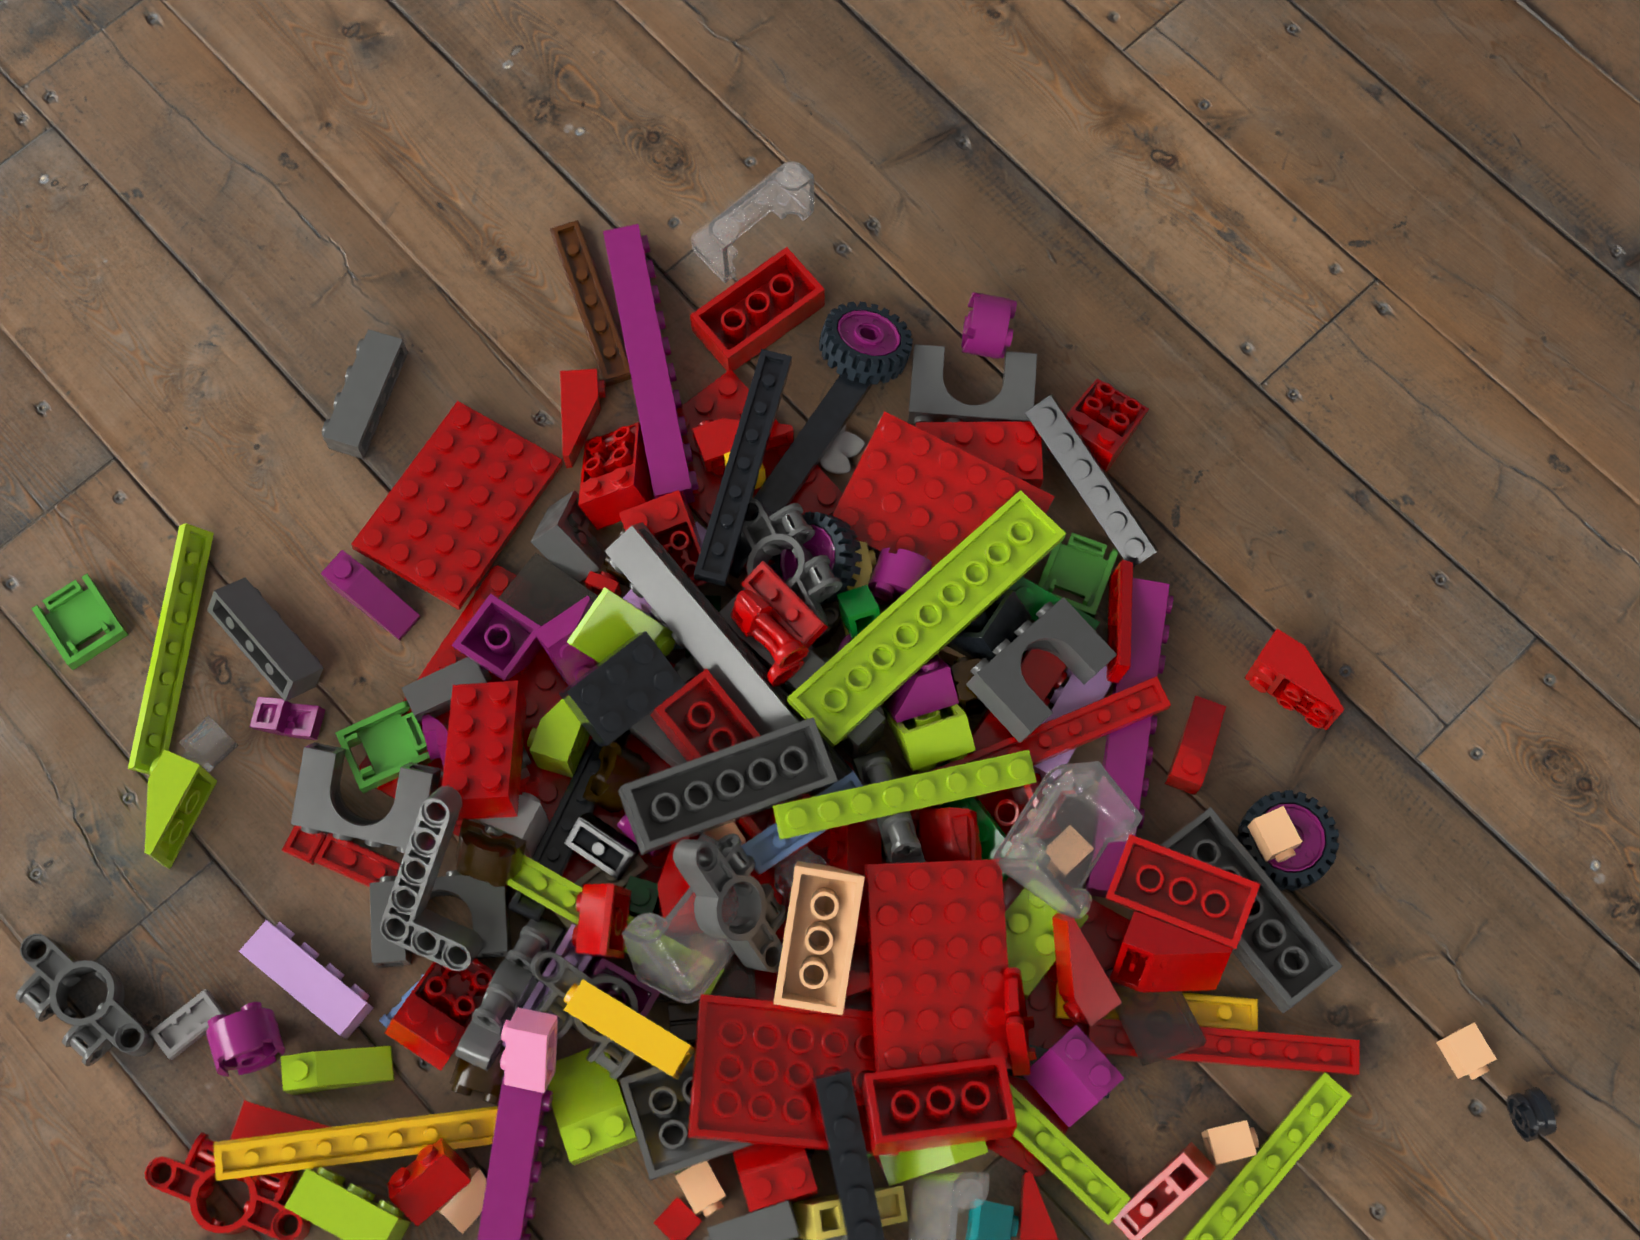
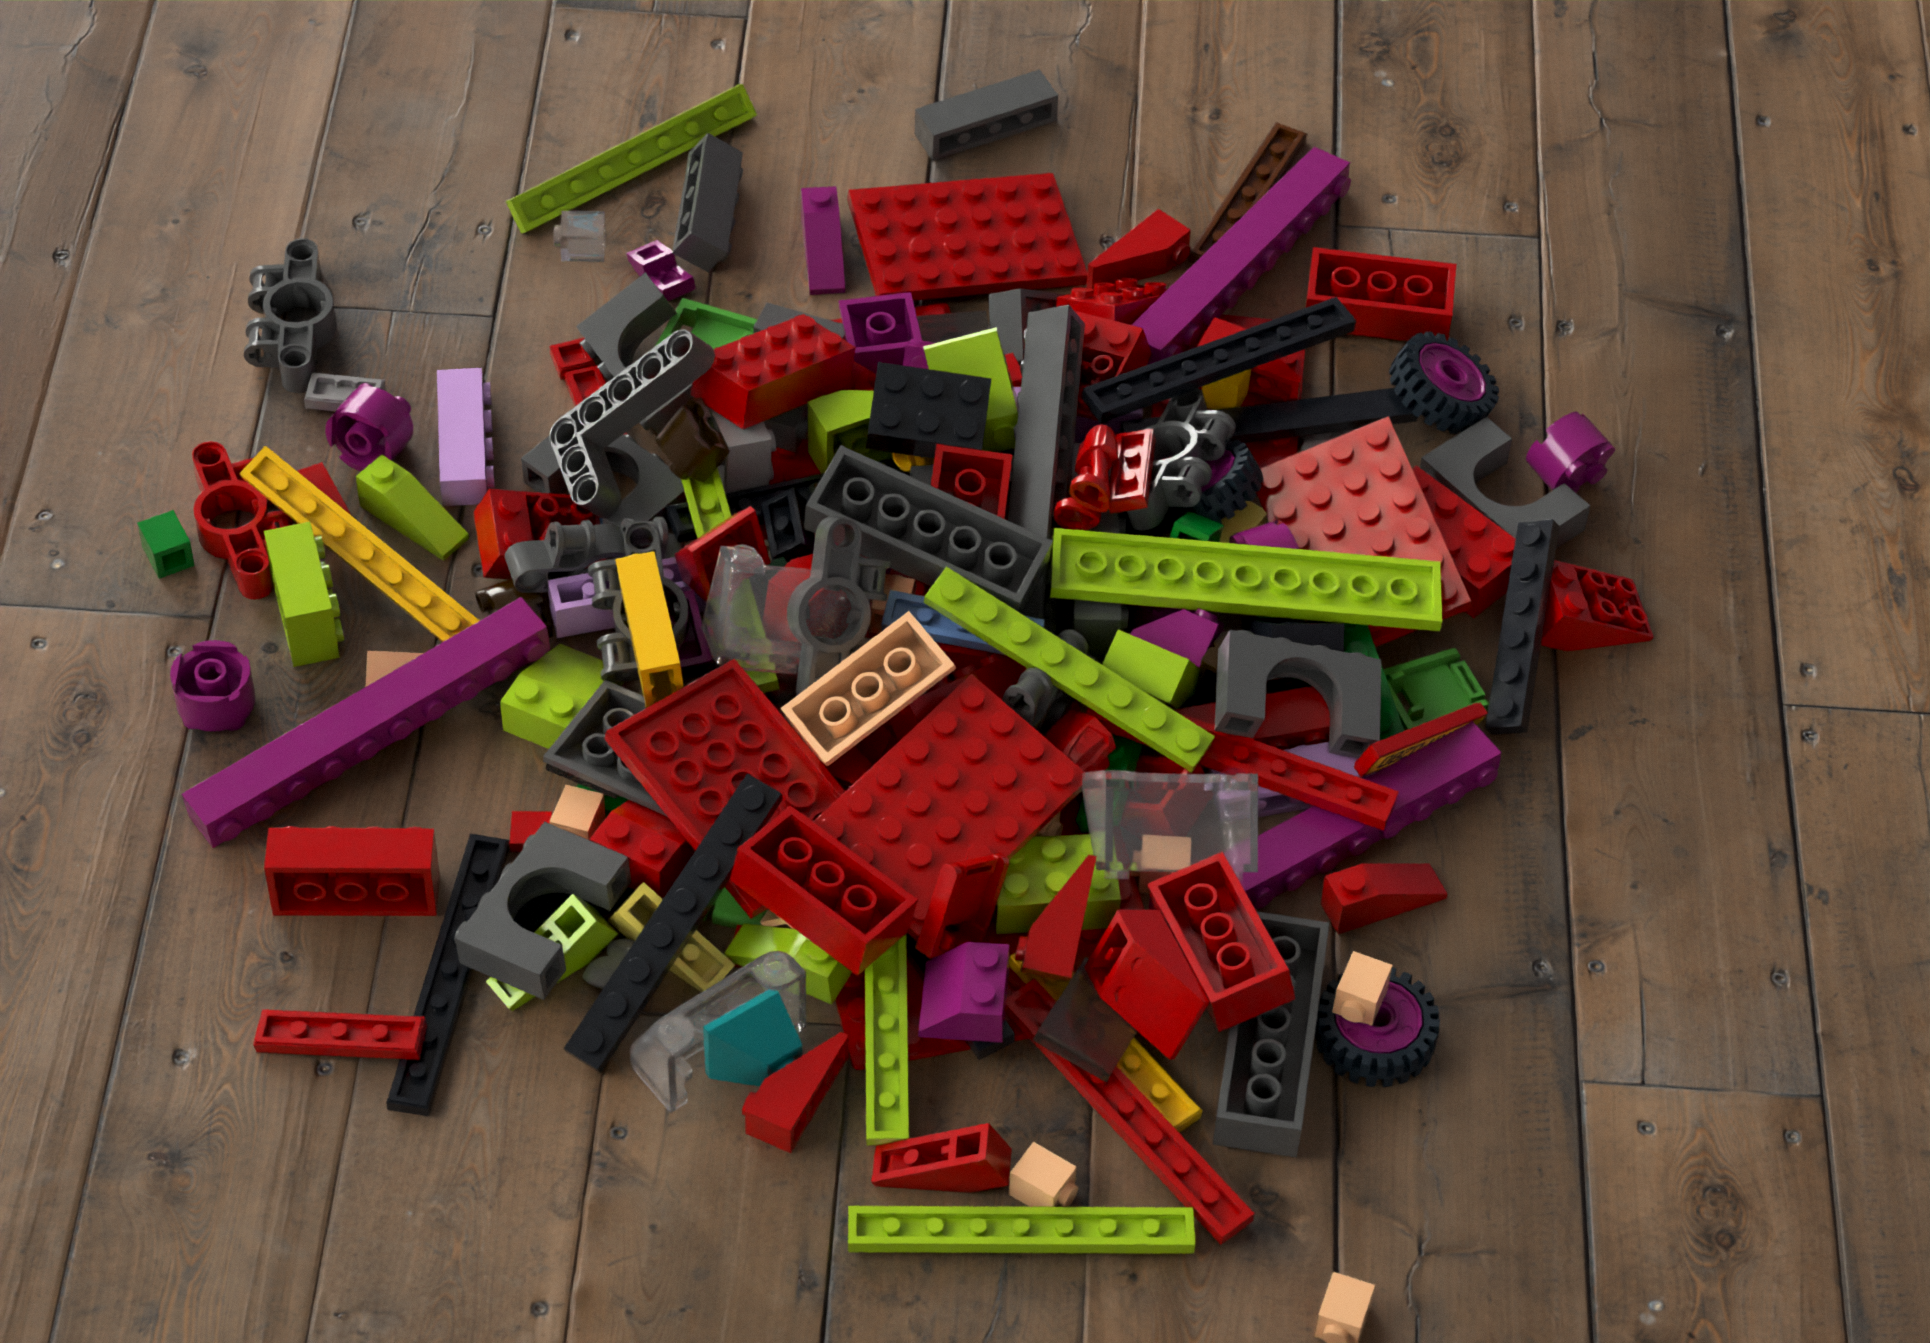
camera: 45 degrees right, 20 degrees down
(77, 618) = (591, 95): bright green container -> none
(174, 802) = (506, 246): lime slope -> none
(428, 1181) = (384, 626): red brick -> none
(529, 1049) = (561, 585): bright pink brick -> none
(783, 191) = (1460, 222): clear windscreen -> none
(1295, 680) = (1525, 899): red slope -> none

